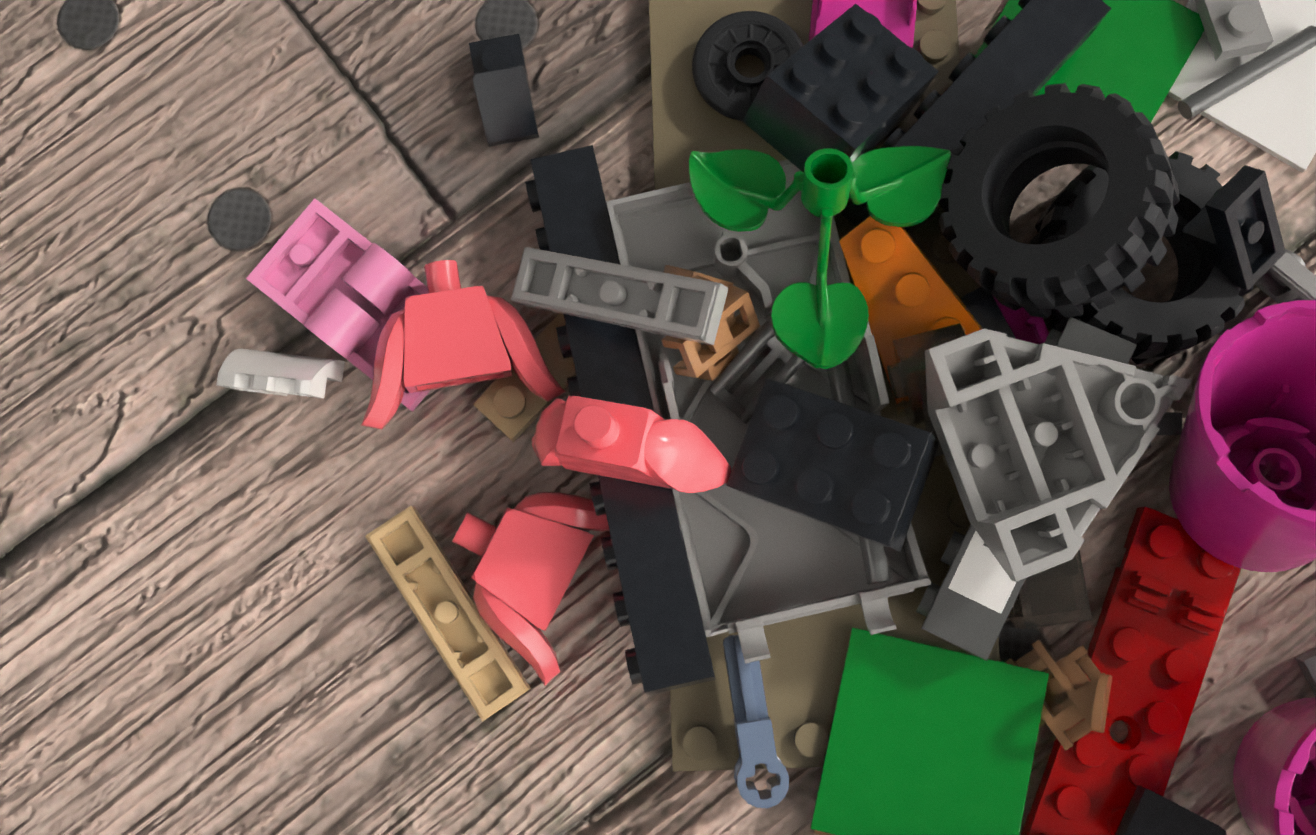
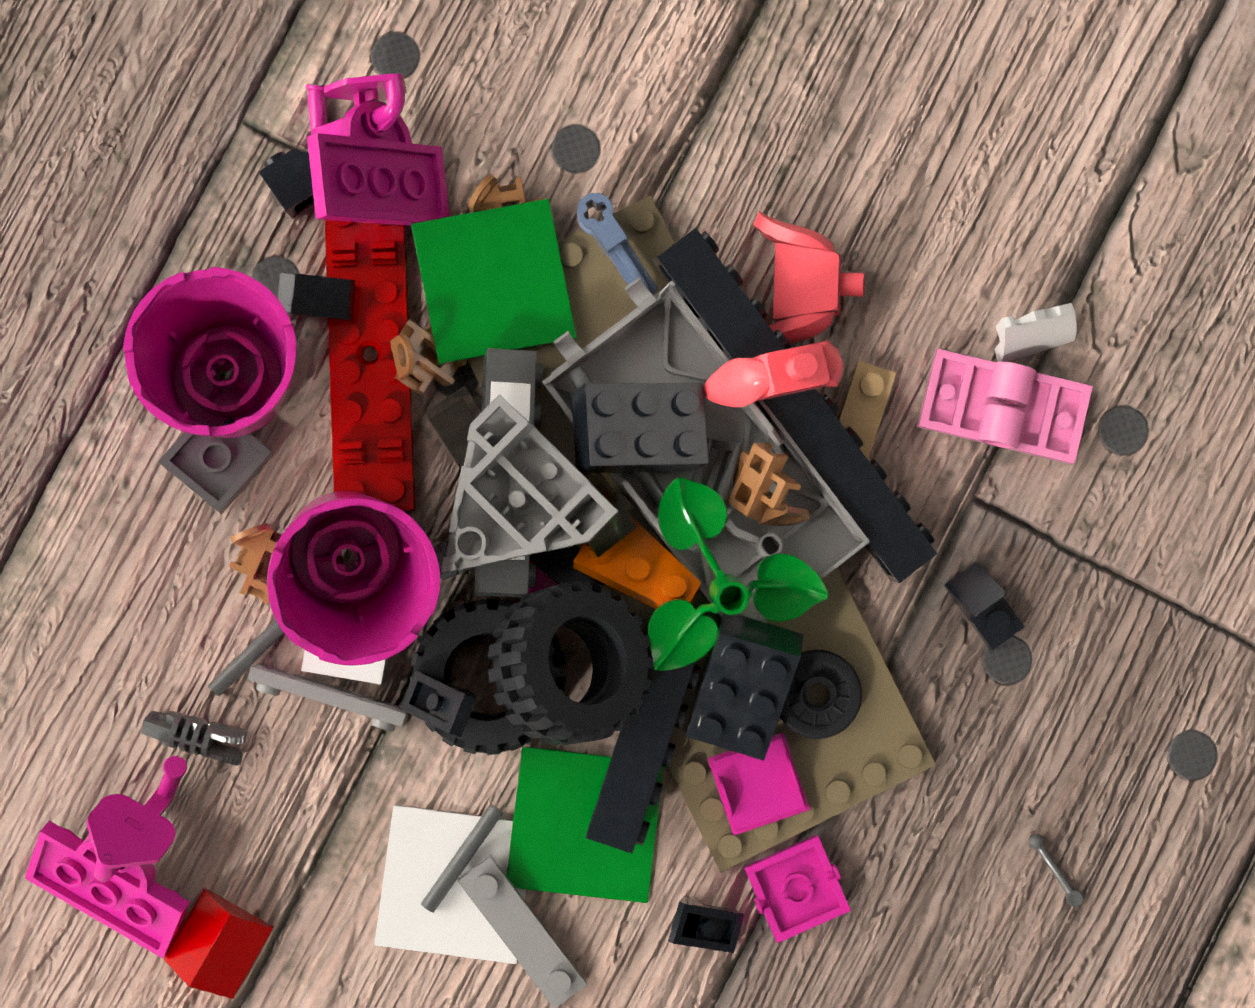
camera: 155 degrees right, 5 degrees up
(447, 612) = (845, 228): tan plate -> none
(452, 341) = (926, 403): coral torso -> none
(620, 295) = (830, 471): light grey plate -> none

